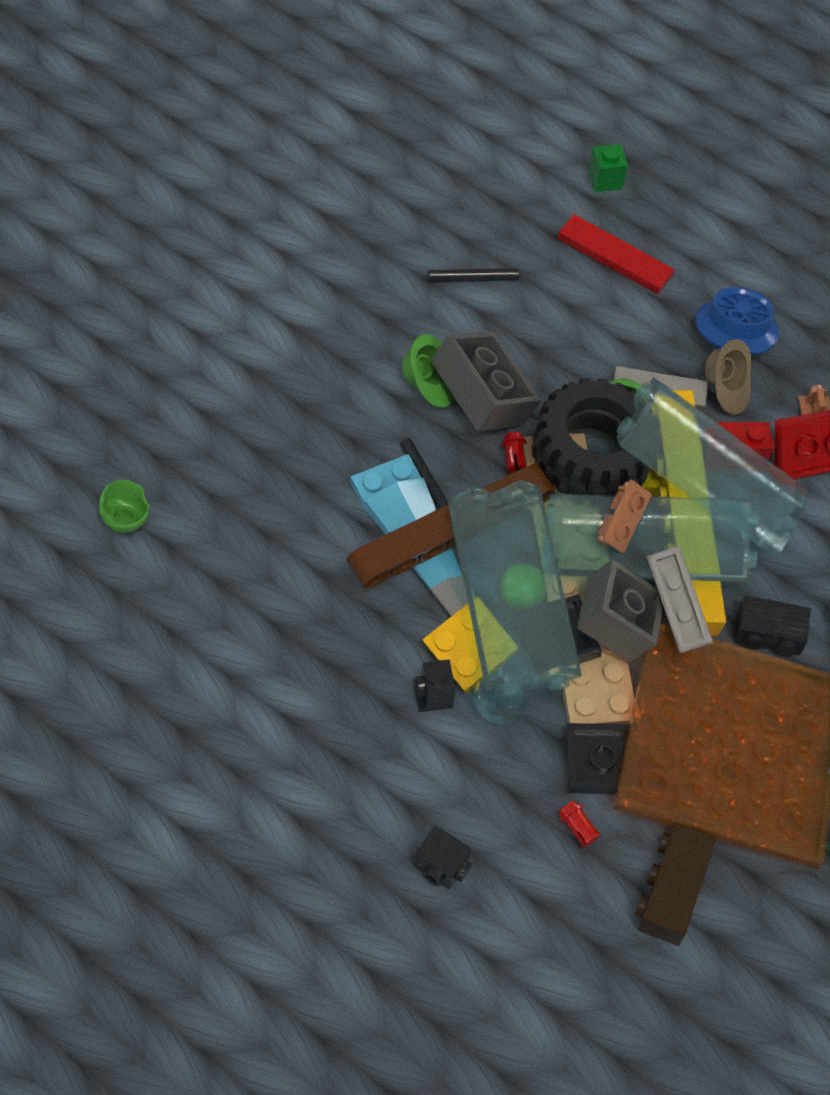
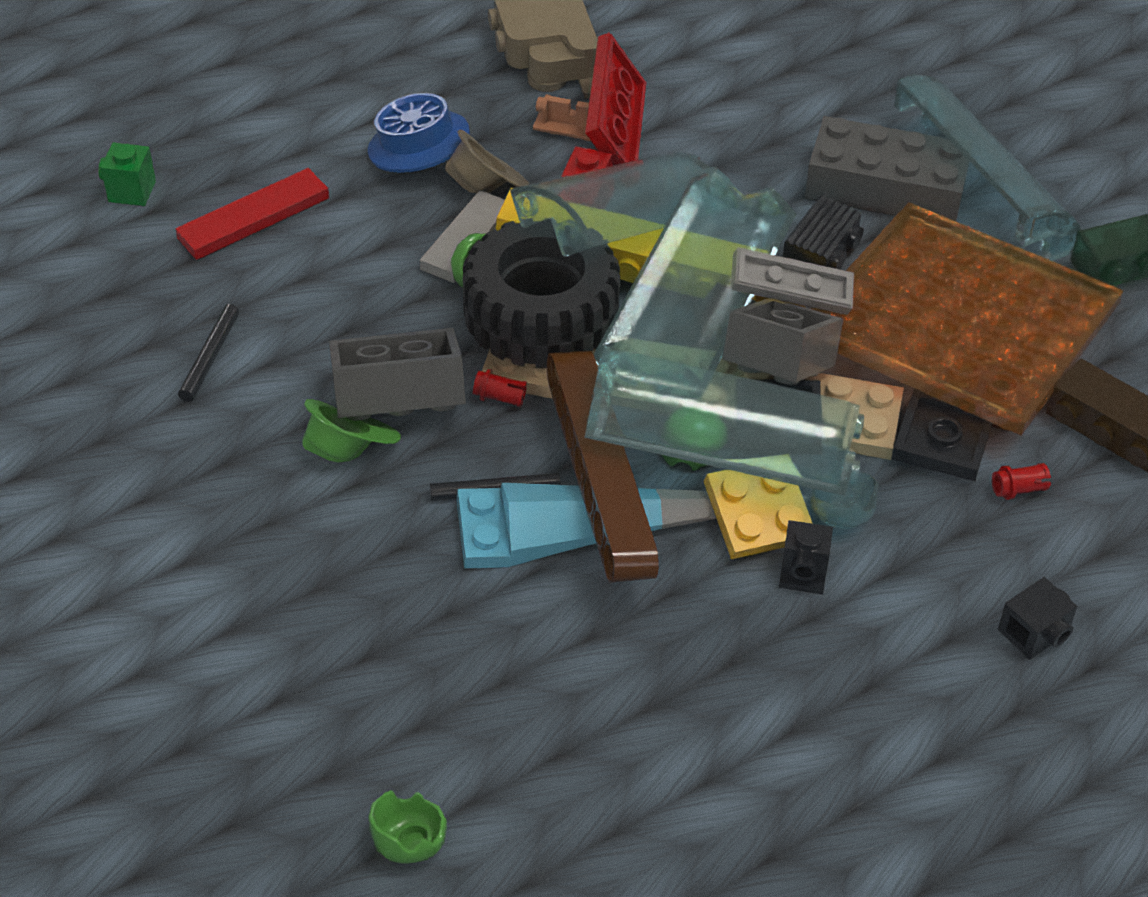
camera: 65 degrees left, 10 degrees down
(628, 507) = (653, 281): nougat hinge -> none

